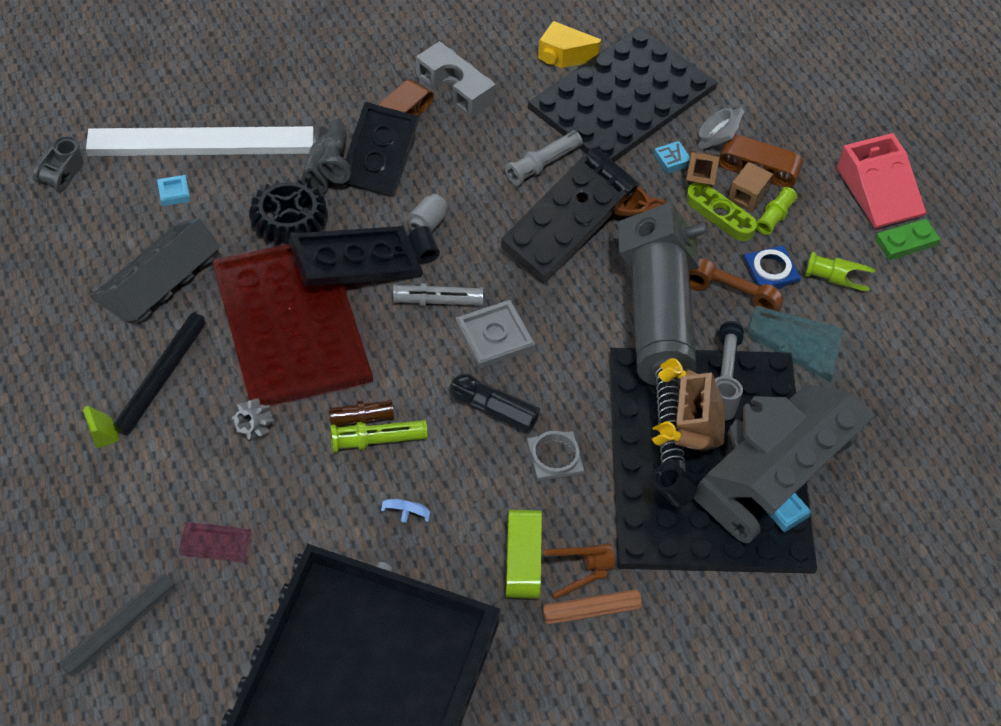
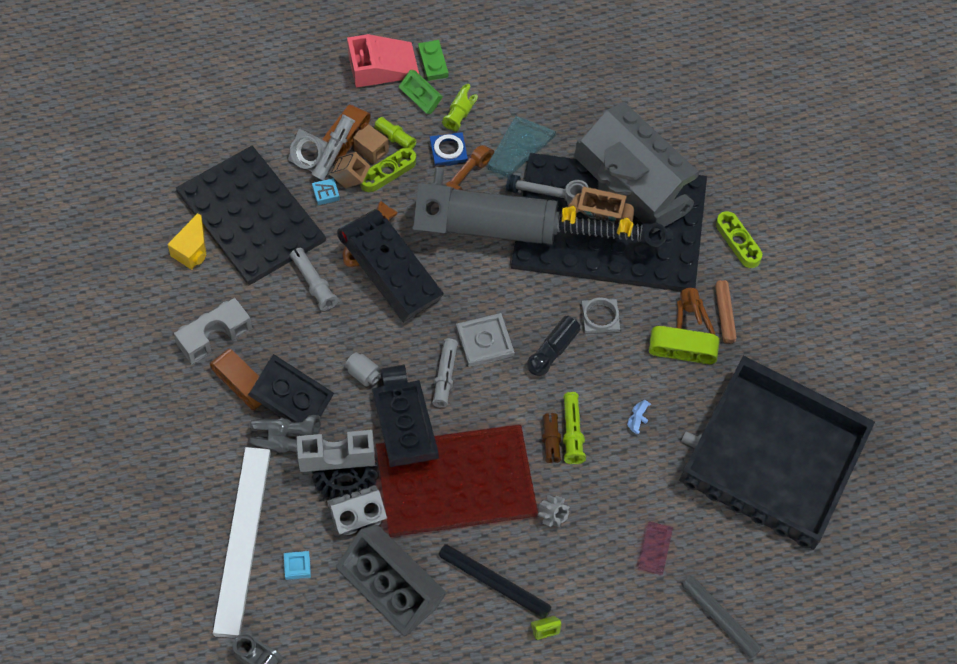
camera: 80 degrees left, 5 degrees up
(233, 224) = (356, 506): none -> light grey brick
(294, 181) = (318, 454): none -> light grey arch
(725, 605) = (739, 230): none -> lime beam
(736, 142) = (333, 147): none -> light grey pin
(848, 228) = (420, 92): none -> bright green plate

